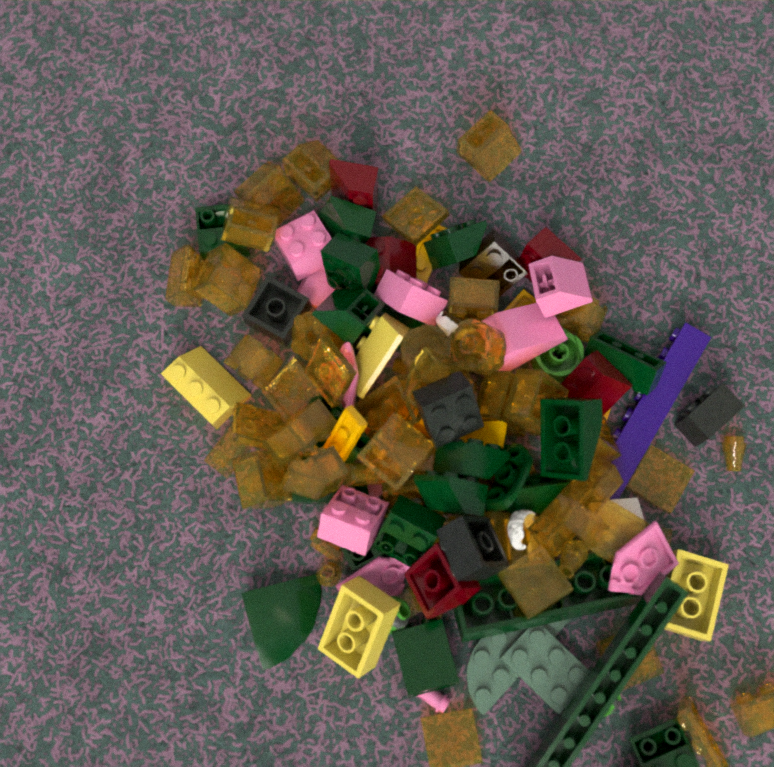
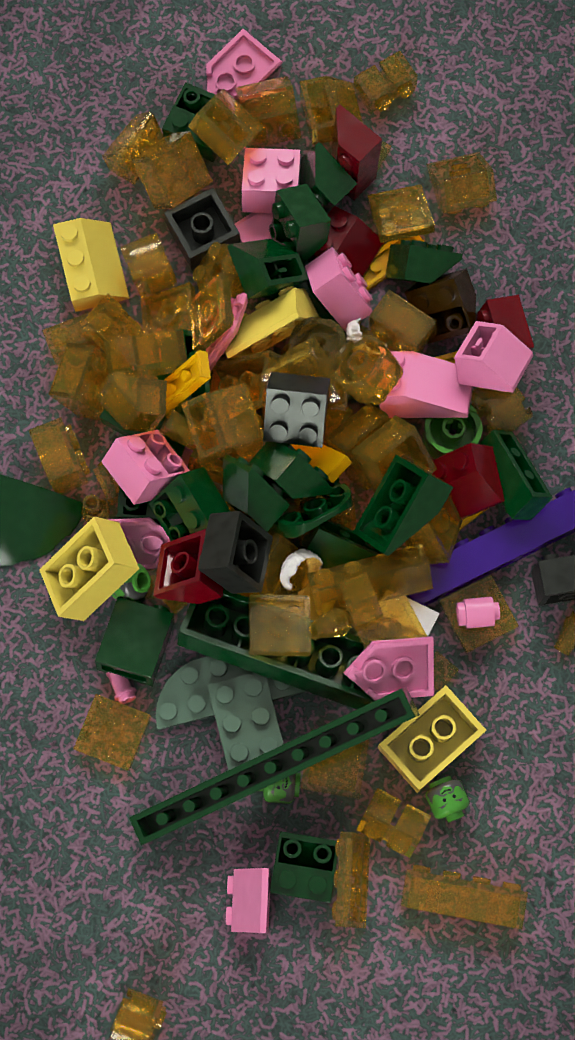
camera: 35 degrees right, 0 degrees up
(224, 172) = (240, 64): none -> bright pink tile
(277, 550) = (58, 454): none -> clear yellow brick
(340, 131) = (380, 88): none -> clear yellow piece
(445, 168) = (462, 182): none -> clear yellow slope
(488, 146) = (522, 185): clear yellow slope -> none
(663, 479) = (477, 612): none -> bright pink brick
(695, 681) = (406, 833): none -> clear yellow piece
(729, 632) = (447, 799): none -> bright green head

